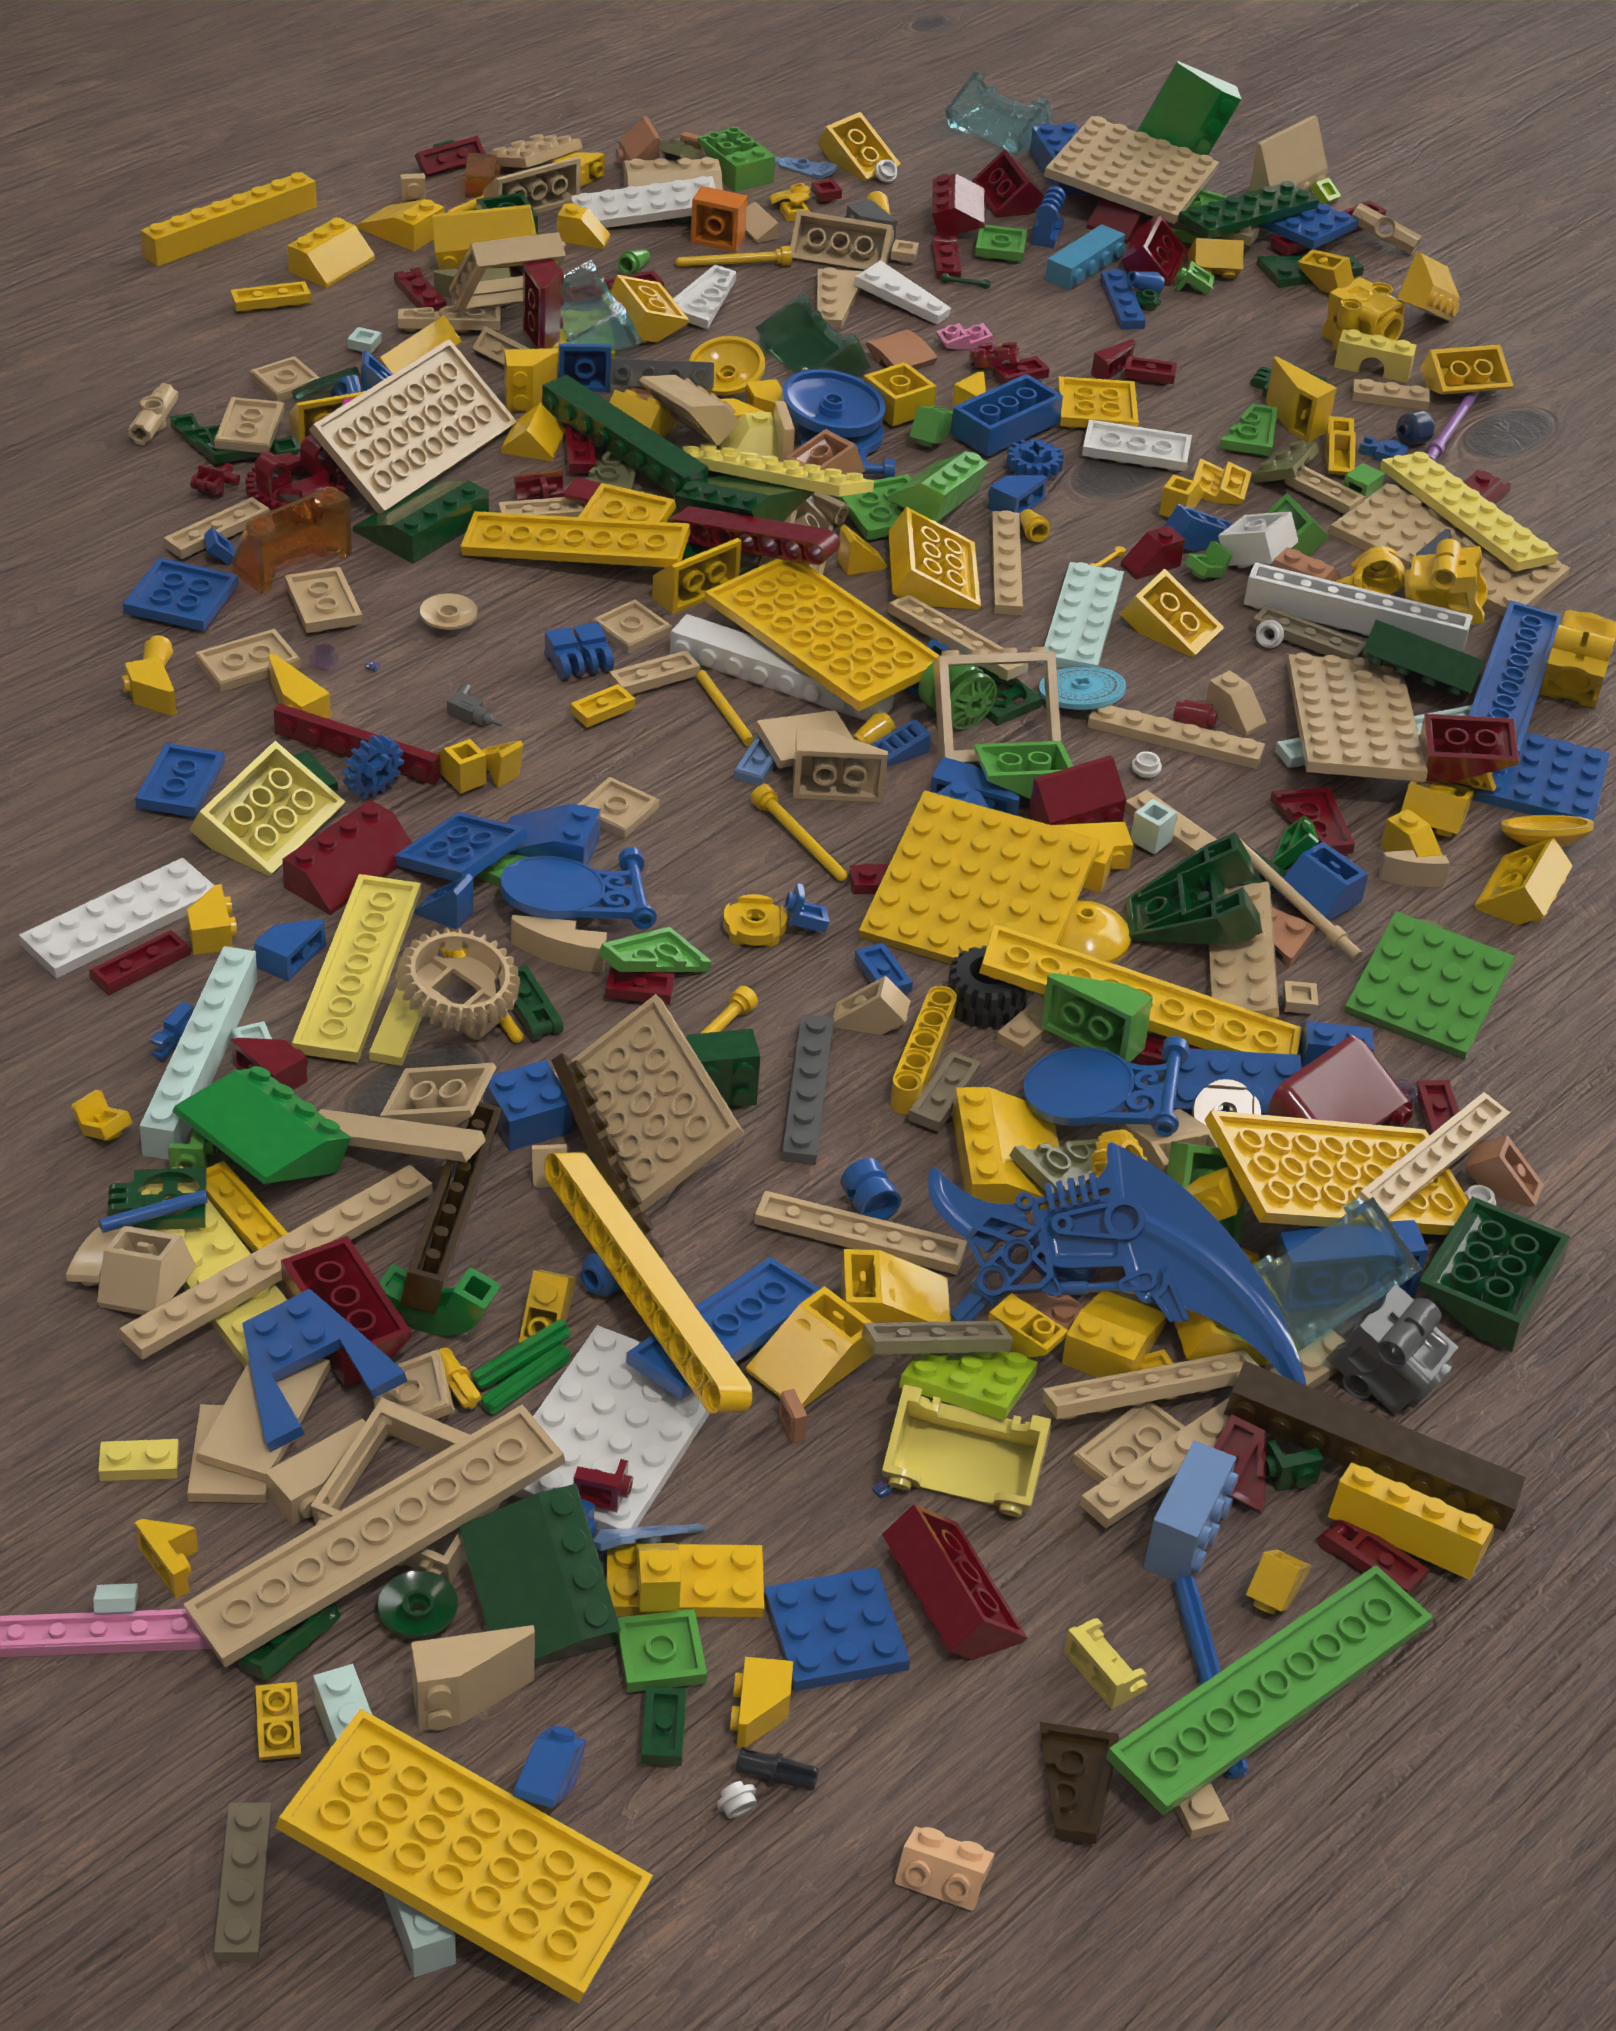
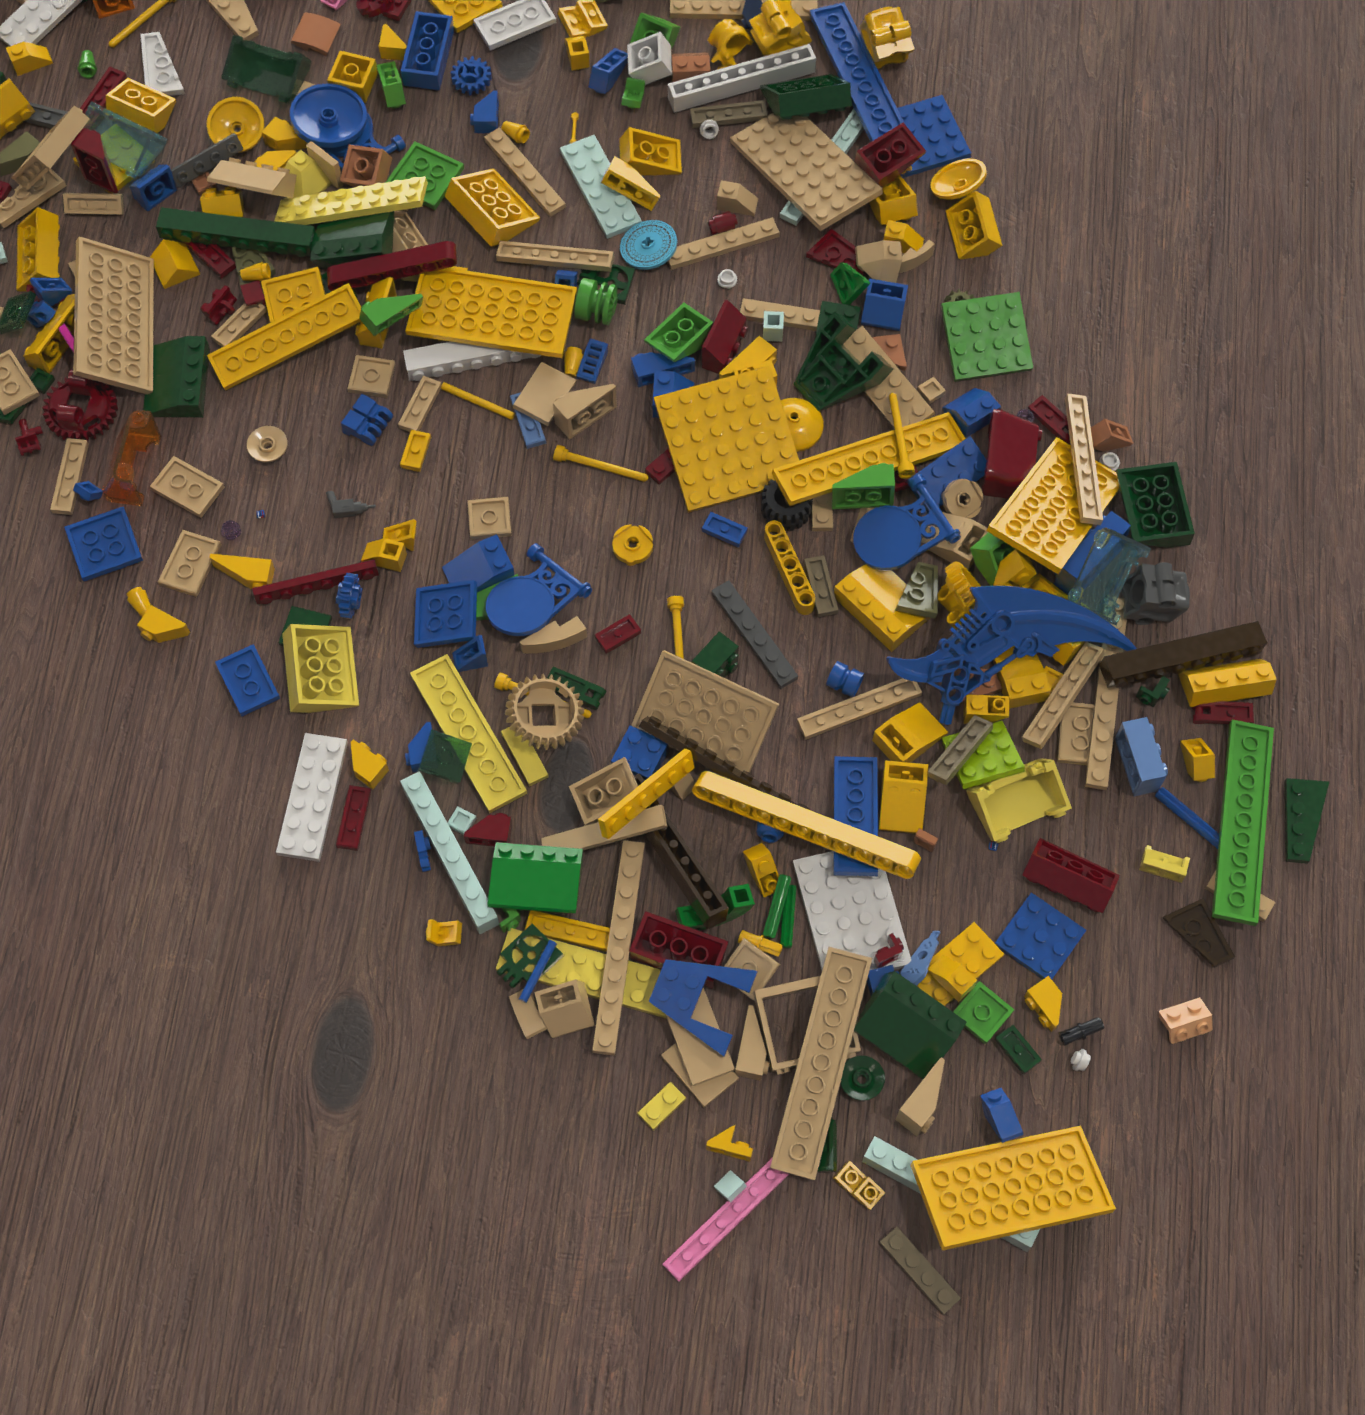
camera: 35 degrees left, 25 degrees up
(300, 958) = (445, 756): none -> clear green tile
(329, 863) = (391, 664): dark red slope -> none
(477, 1111) = (646, 793): none -> yellow plate
(525, 374) = (132, 222): yellow slope -> none
(606, 474) = (259, 271): none -> yellow cone
(654, 952) = (609, 608): bright green wing -> none
(697, 555) = (387, 311): none -> bright green slope
(805, 914) = (656, 520): blue bracket -> none
(856, 554) = (444, 227): yellow slope -> none
(873, 1008) = (743, 560): tan slope -> none
(942, 485) = (443, 140): bright green slope -> none
(981, 657) = (611, 283): tan window -> none
(1114, 619) = (628, 182): none -> yellow slope
(1154, 553) = (599, 108): dark red slope -> none
(1180, 1025) = (905, 467): none -> yellow piece
(1249, 1447) = (1133, 706): dark red wing -> none
(1334, 934) = (914, 333): tan bar -> none
(1360, 835) = (880, 259): none -> tan slope
(1377, 1753) = (1302, 816): none -> dark green wing

